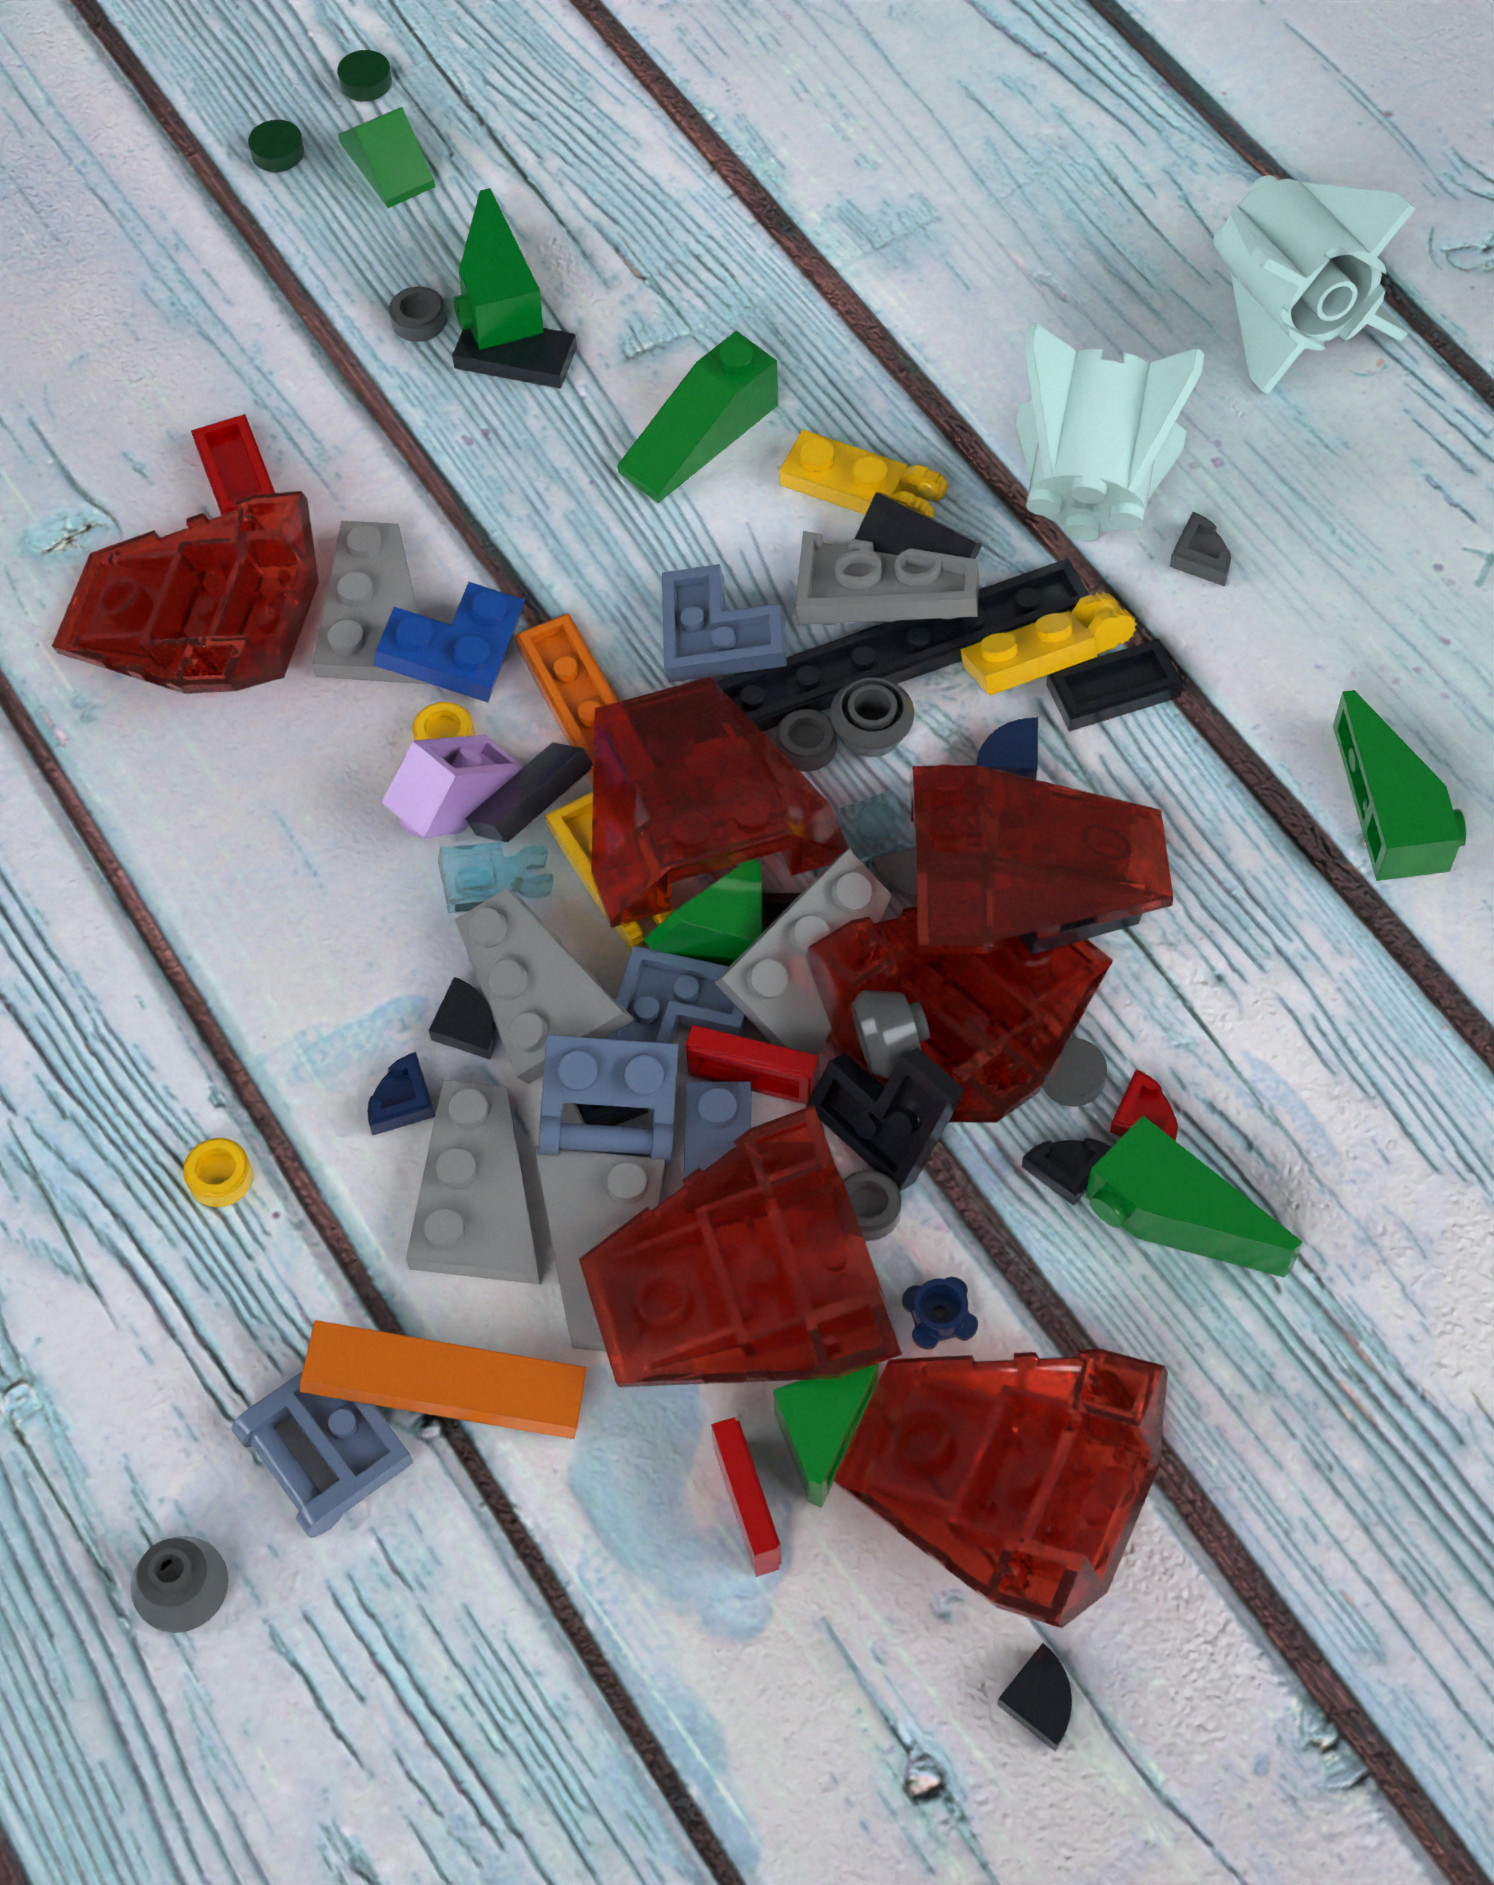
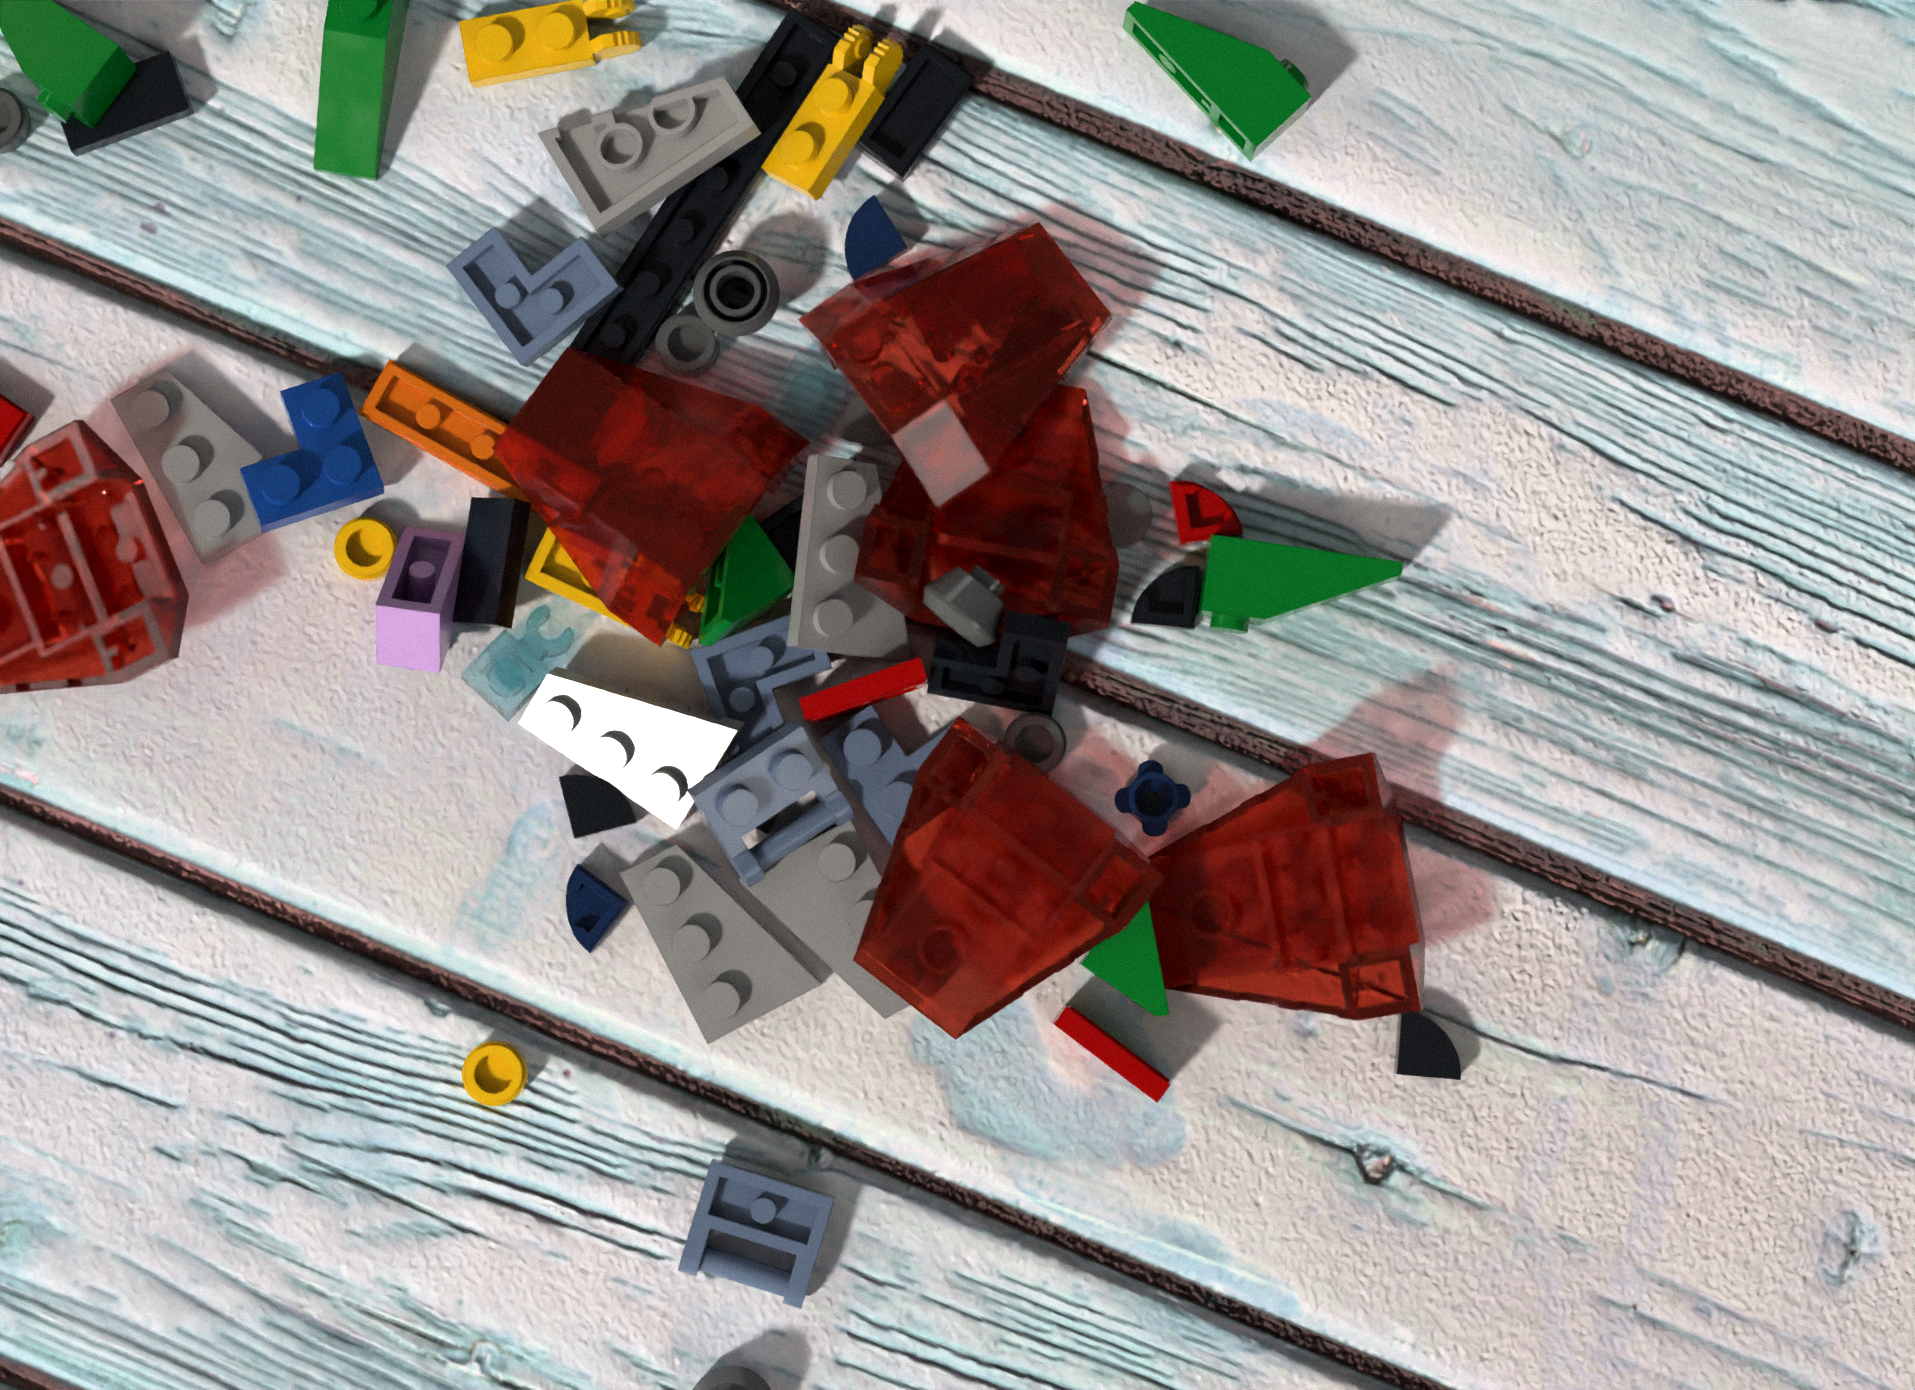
camera: 40 degrees left, 25 degrees up
(443, 1379) = (815, 1123): orange tile -> none
(898, 527) = (632, 77): black tile -> none

